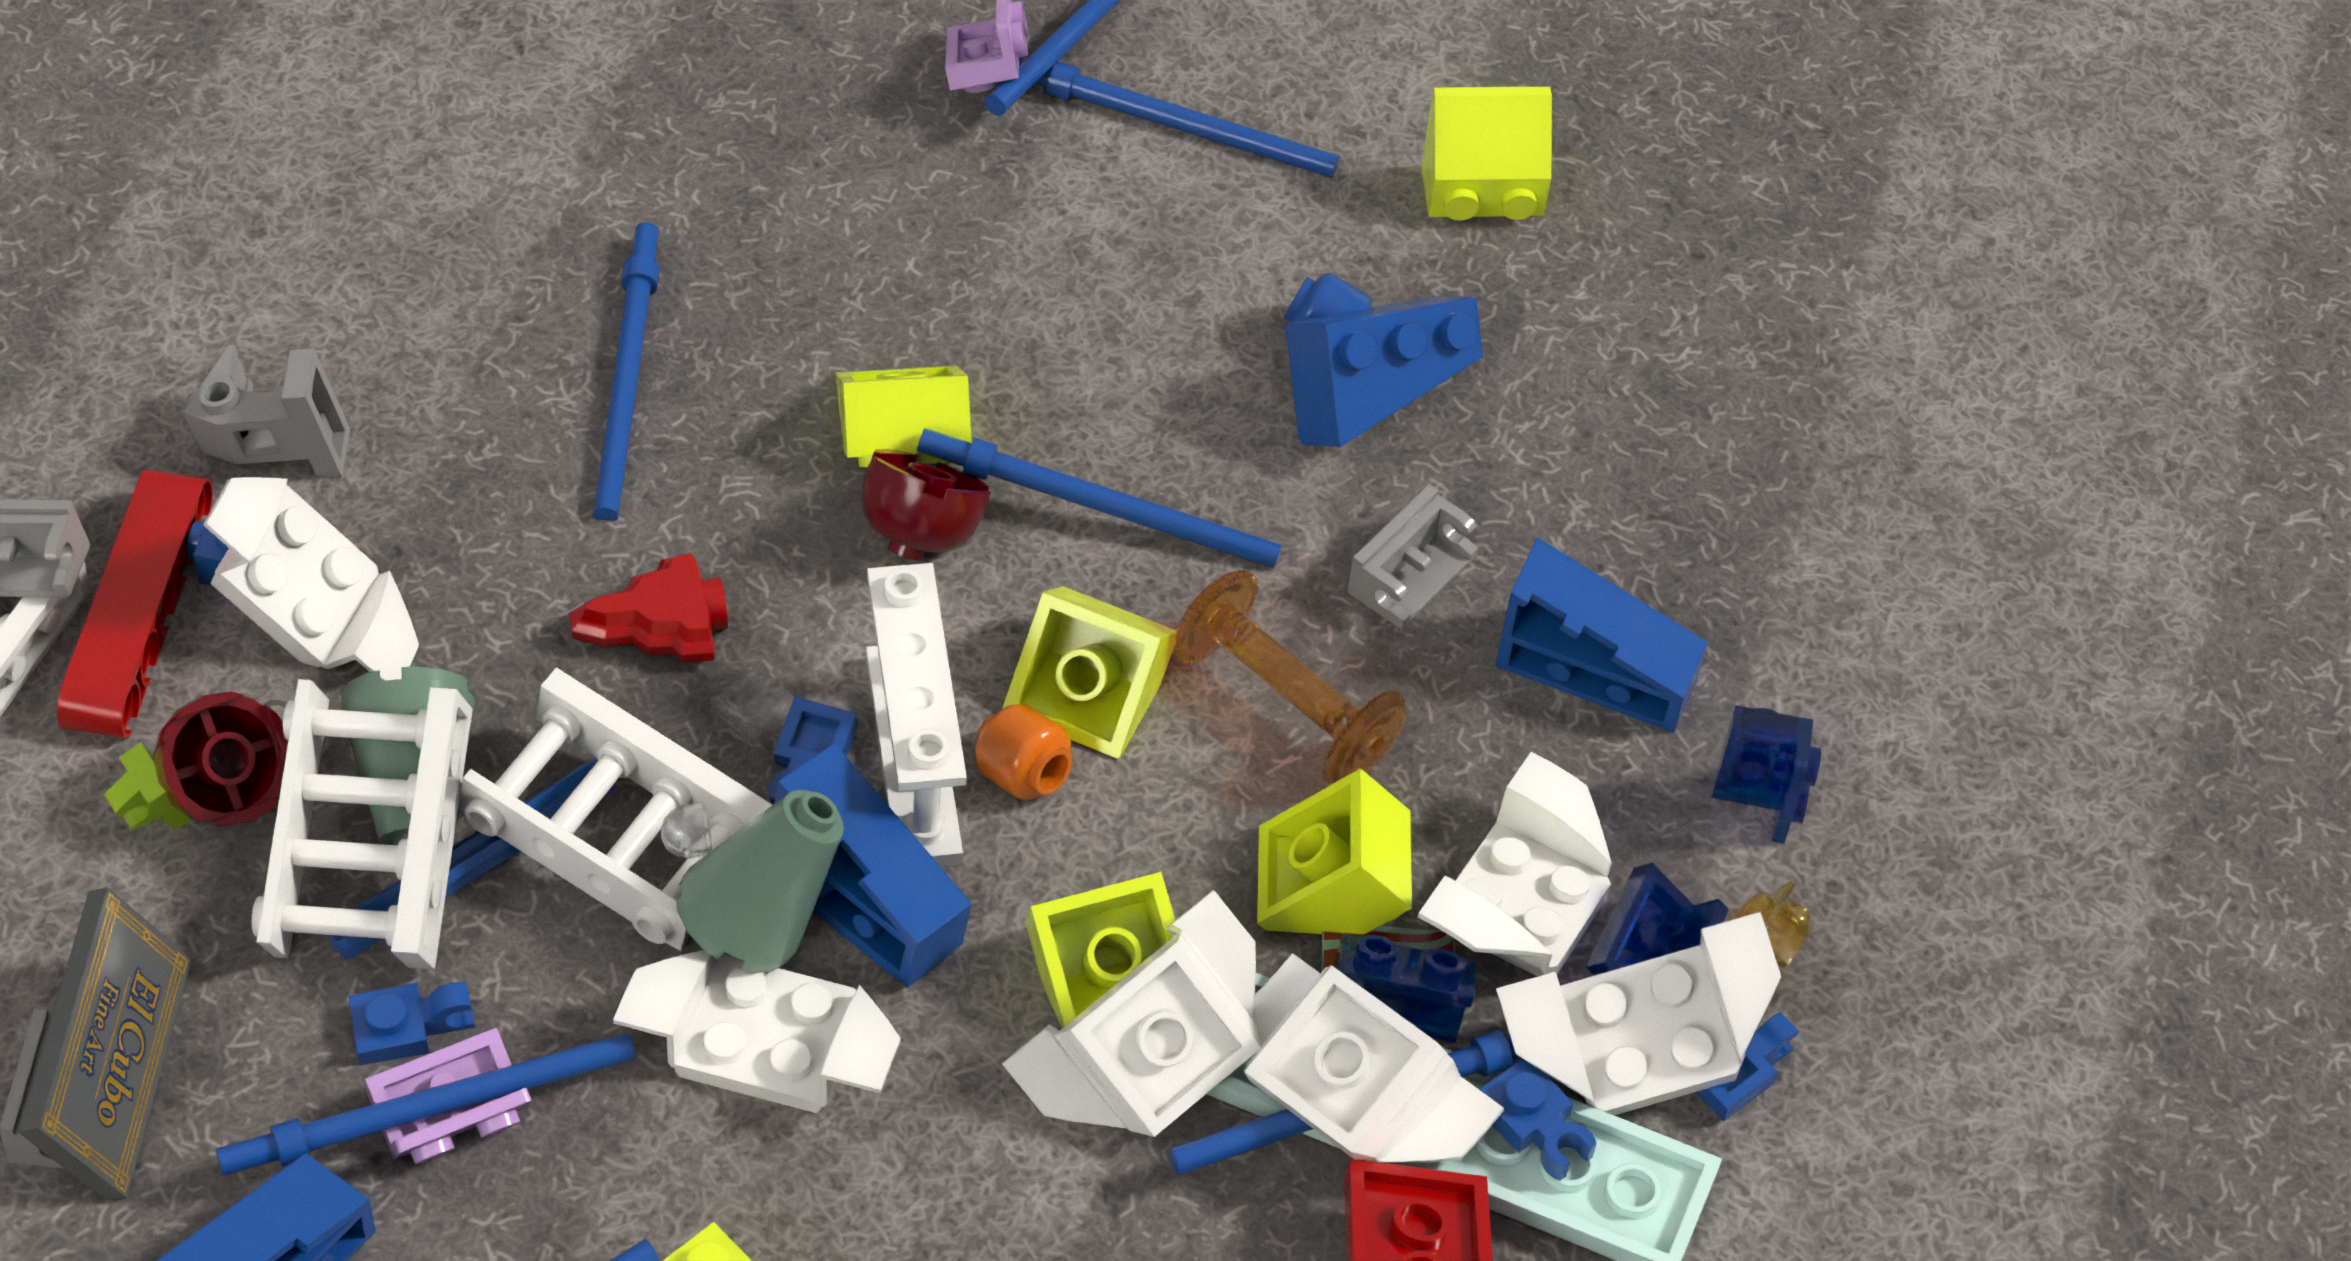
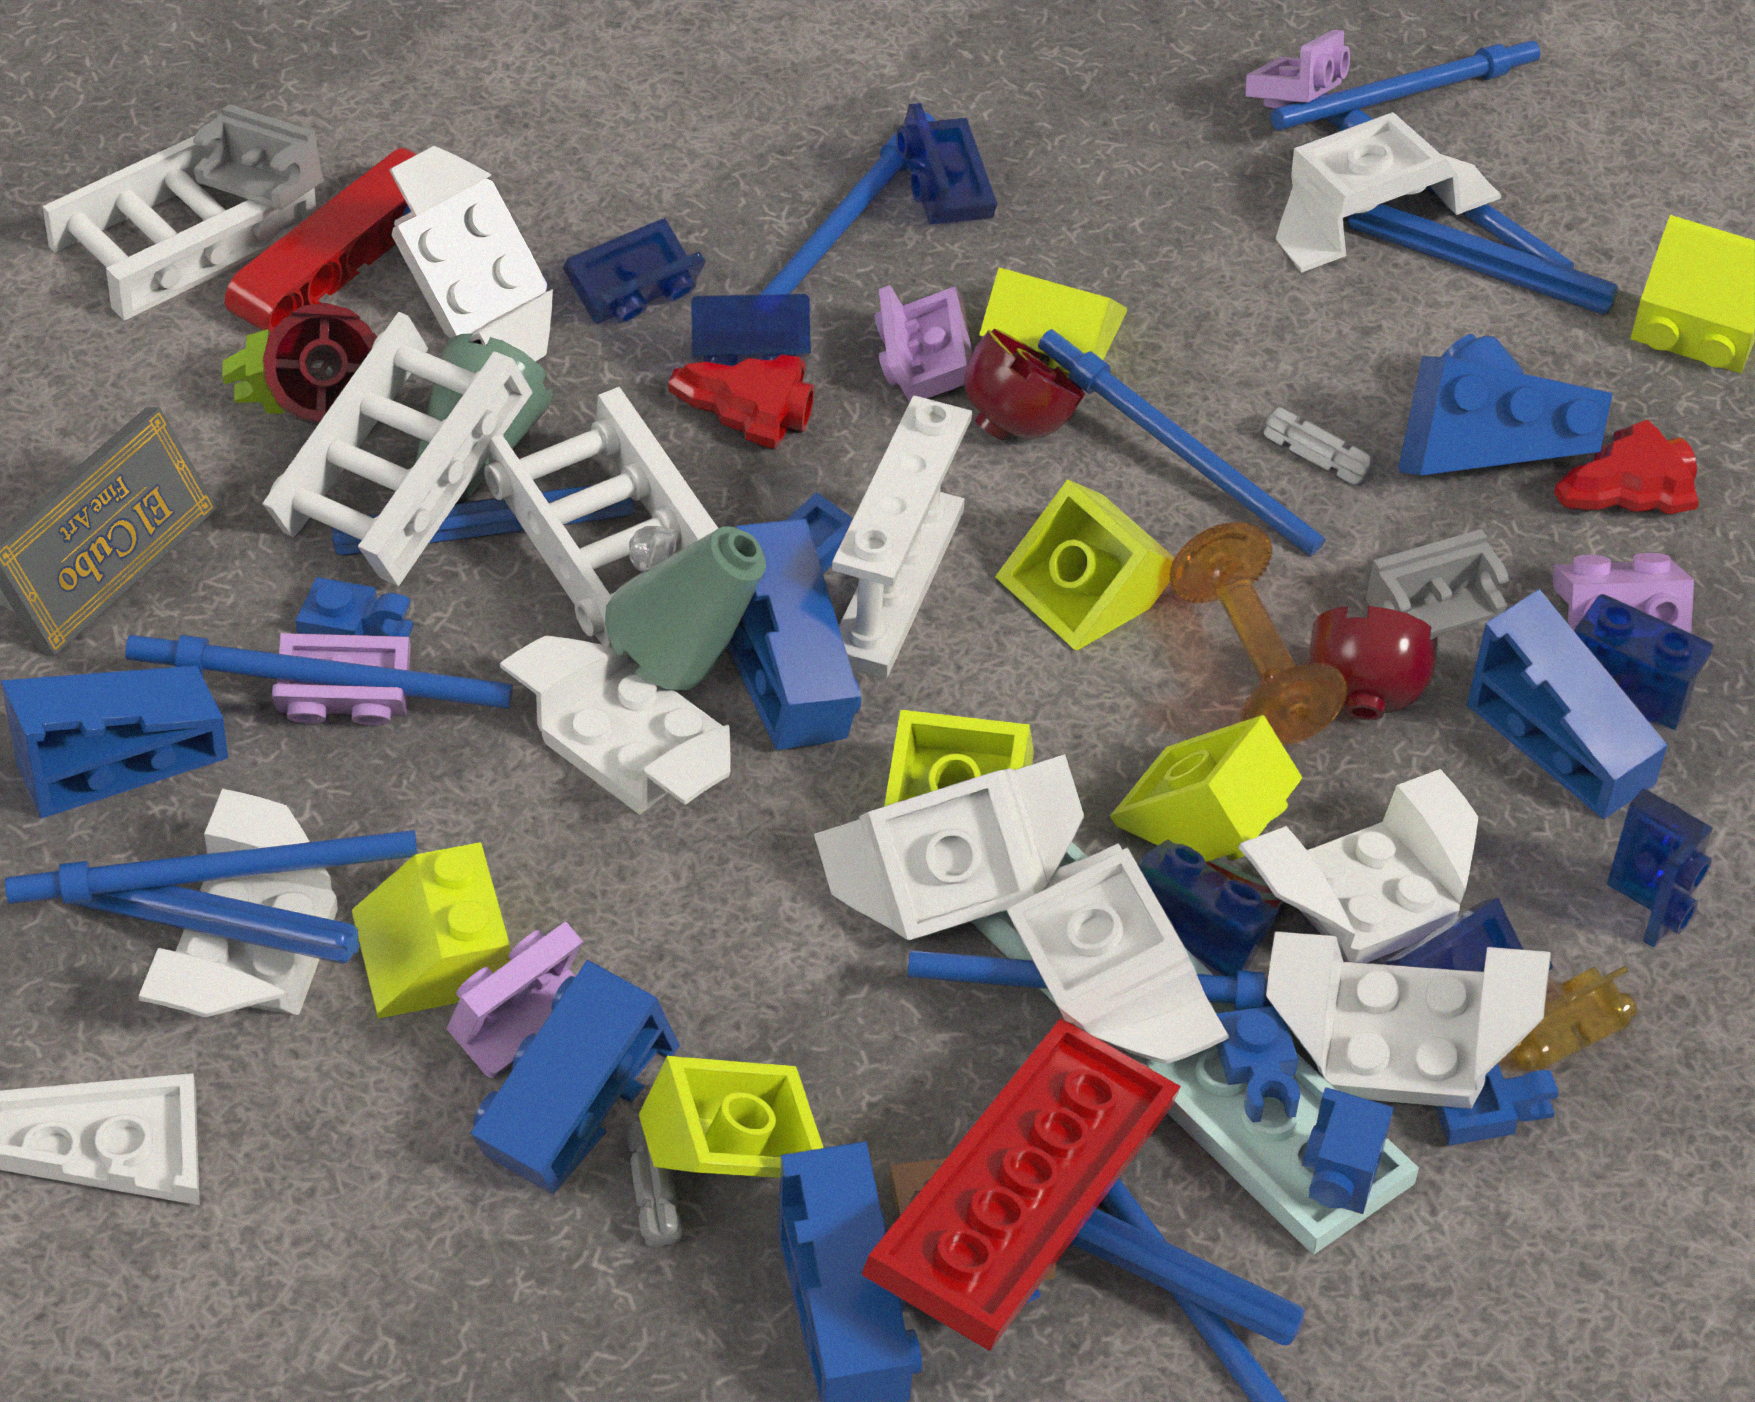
camera: 30 degrees right, 5 degrees down
(277, 425) = (520, 144): light grey tile -> none
(459, 518) = (631, 271): none -> clear blue bracket
(626, 543) = (749, 327): none -> clear blue bracket
(704, 280) = (945, 168): none -> clear blue bracket
(798, 482) = (924, 342): none -> lavender bracket
(1023, 752) = (987, 607): orange head -> none
(1106, 140) = (1359, 171): none -> white piece
(1219, 447) = (1318, 446): none -> light grey axle
(1252, 180) = (1487, 257): none -> blue axle
(1417, 659) = (1380, 657): none -> dark red cylinder
(1519, 363) = (1634, 472): none -> red rock
(1578, 496) = (1648, 584): none -> lavender bracket
(1639, 554) = (1645, 657): none -> clear blue bracket
(1666, 1175) = (1346, 1149): none -> blue brick

